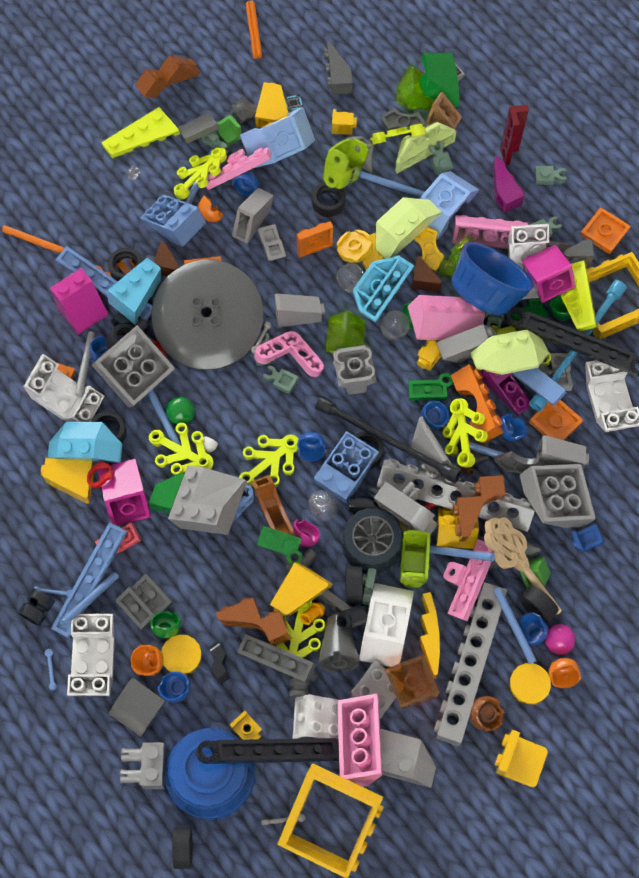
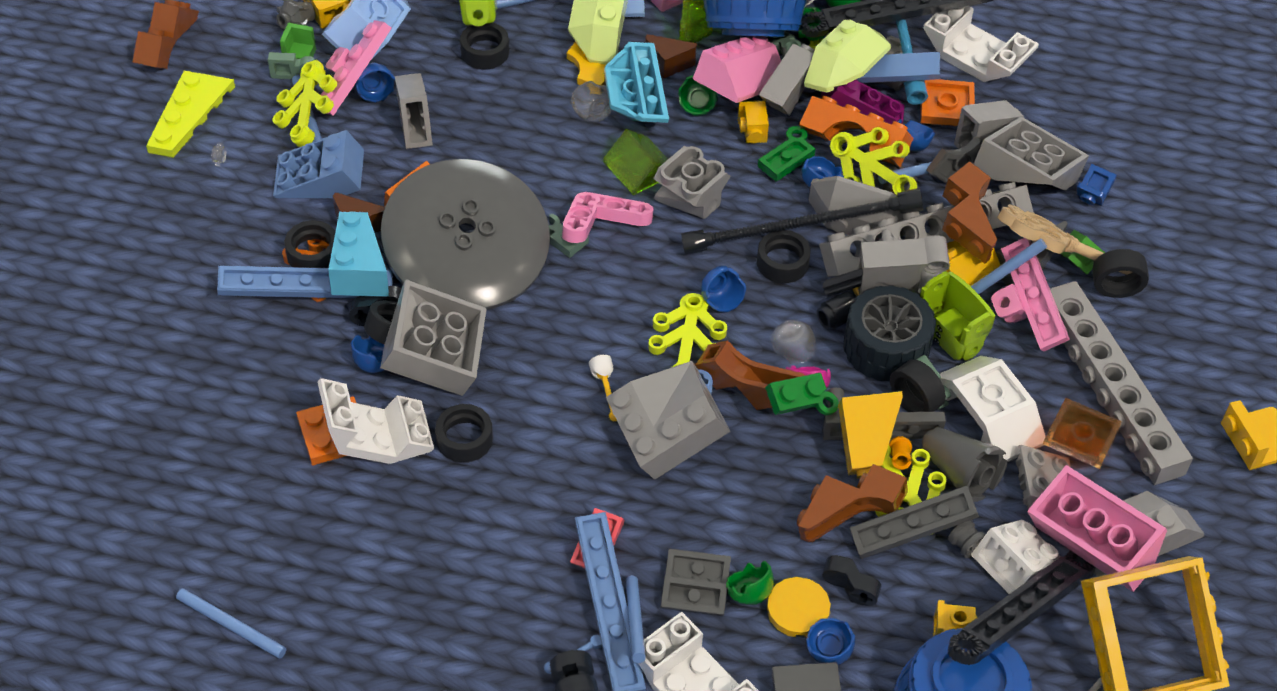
camera: 40 degrees left, 15 degrees down
(32, 239) = (160, 296): orange bar -> none
(69, 477) = (469, 512): yellow slope -> none
(78, 301) = (292, 316): dark pink slope -> none
(84, 366) = (364, 382): light grey bar -> none
(85, 442) = (453, 460): medium azure wedge -> none
(107, 476) = (525, 468): red piece -> none
(125, 494) = (554, 480): dark pink slope -> none
(147, 660) = (770, 636): orange hair -> none
(163, 417) = (527, 381): medium blue bar -> none
(165, 494) = (608, 451): green slope -> none
(180, 410) = (530, 356): green hair -> none
(182, 452) = (580, 392): neon yellow plant -> none
(198, 127) = (259, 59): dark grey slope -> none
(209, 213) = (363, 134): orange hair -> none
(267, 325) = (556, 236): light grey hinge -> none
(271, 243) = (465, 129): light grey slope -> none
(282, 380) = (618, 247): sand green plate -> none
(297, 309) = (563, 168): light grey slope -> none
(314, 239) = (514, 86): orange plate -> none
(346, 467) = (785, 281): medium blue slope -> none
(352, 618) = (956, 415): black brick -> none
(354, 246) = (562, 72): yellow tile -> none
(394, 325) = (688, 117): clear hair -> none
(430, 252) = (641, 22): yellow tile -> none
(430, 641) = (1039, 378): yellow slope -> none
(487, 713) = (1183, 415): dark orange hair -> none
(514, 625) = (1120, 309): medium blue bar -> none
(530, 683) = (1188, 360): yellow tile -> none
(534, 628) = (1138, 302): blue hair -> none
(560, 639) = (1170, 296): dark pink hair -> none
(564, 673) = (1212, 321): orange hair -> none

